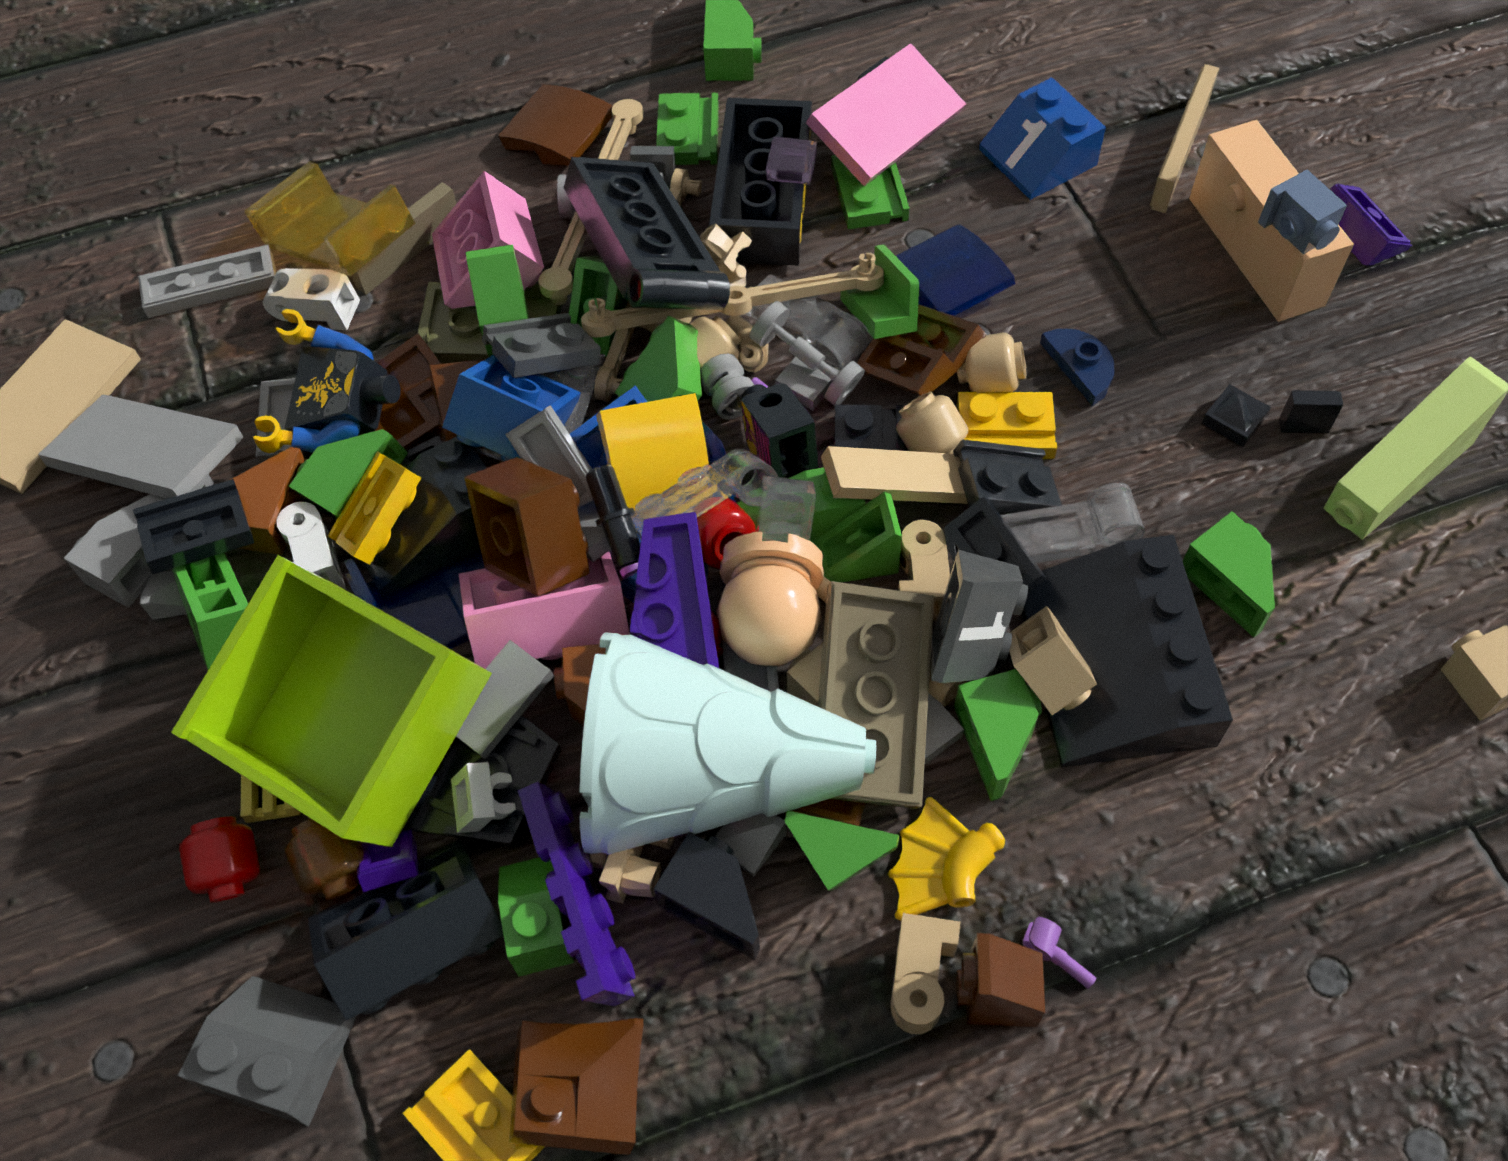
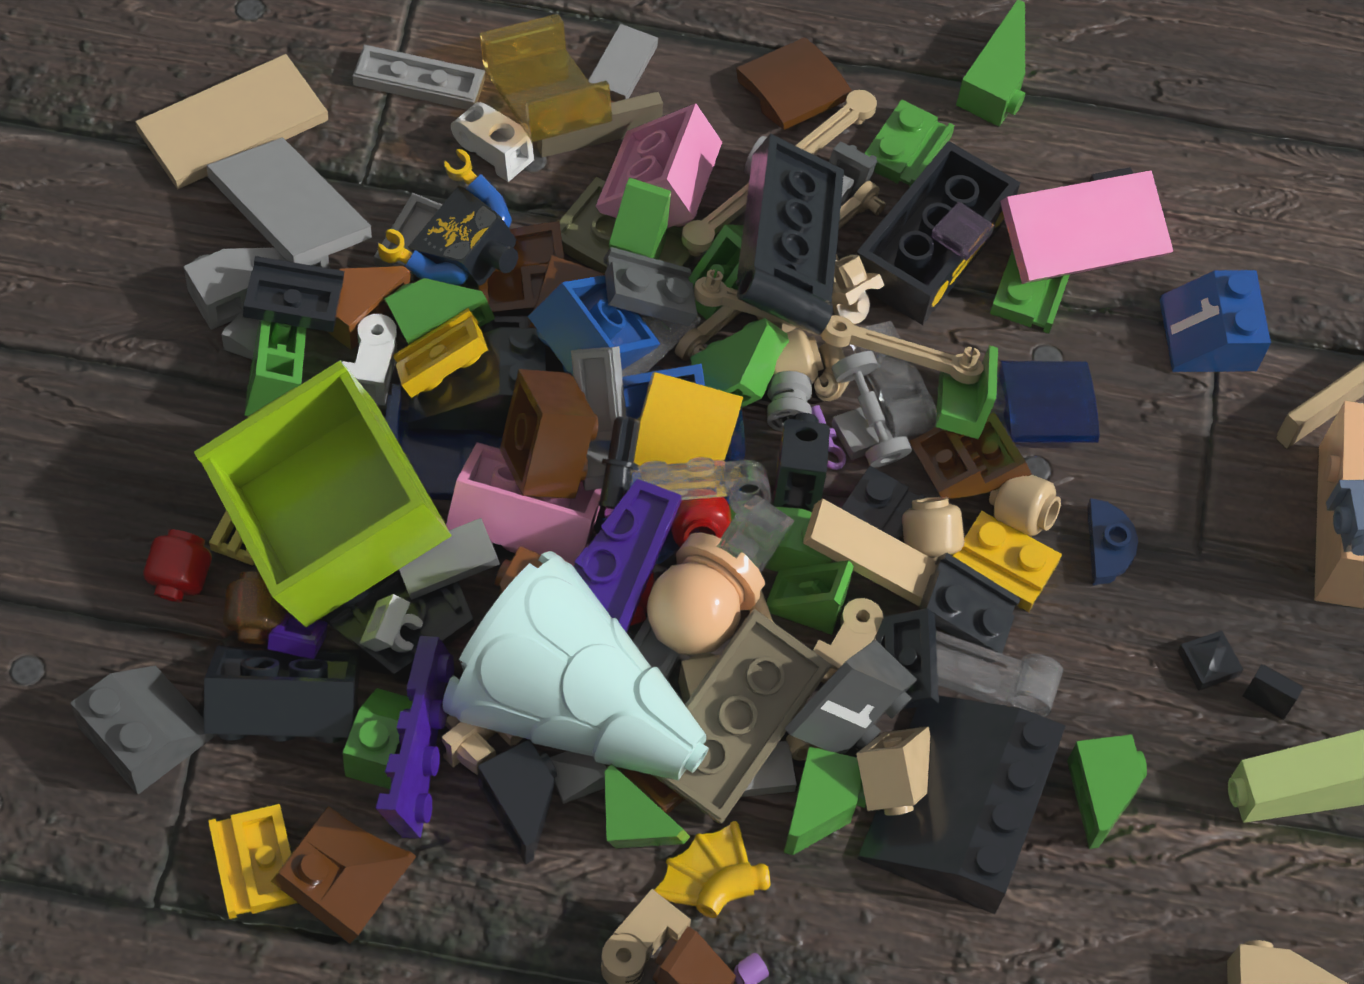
camera: 20 degrees right, 0 degrees up
(394, 167) = (624, 61): none -> light grey tile

